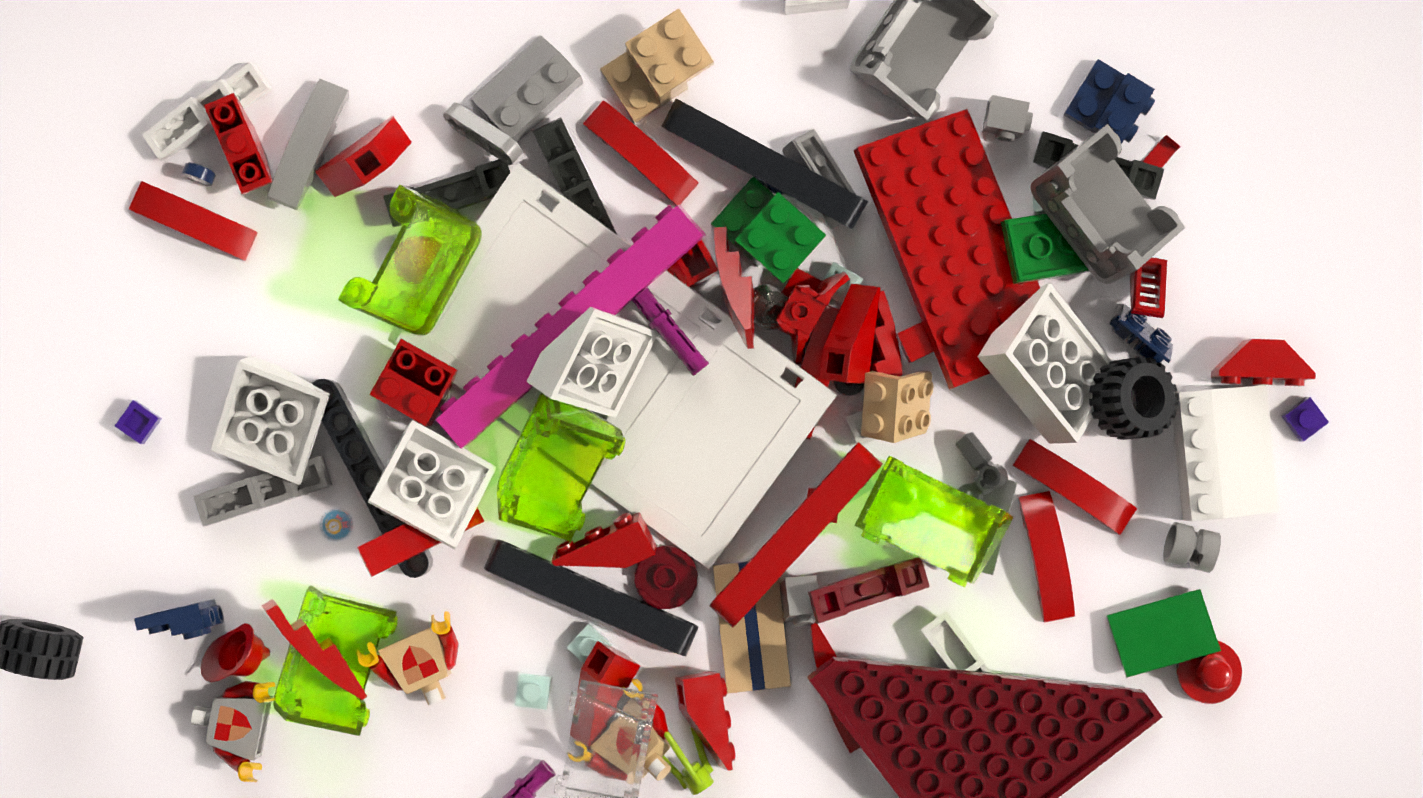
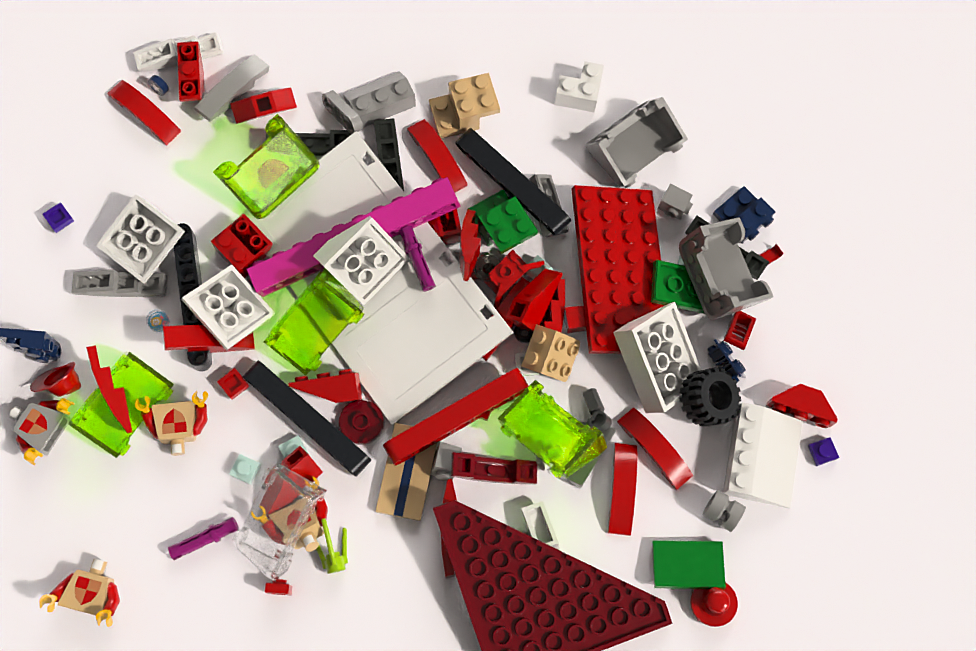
camera: 10 degrees right, 15 degrees down
(474, 581) = (233, 383): none -> red plate
(703, 707) = (355, 517): red slope -> none

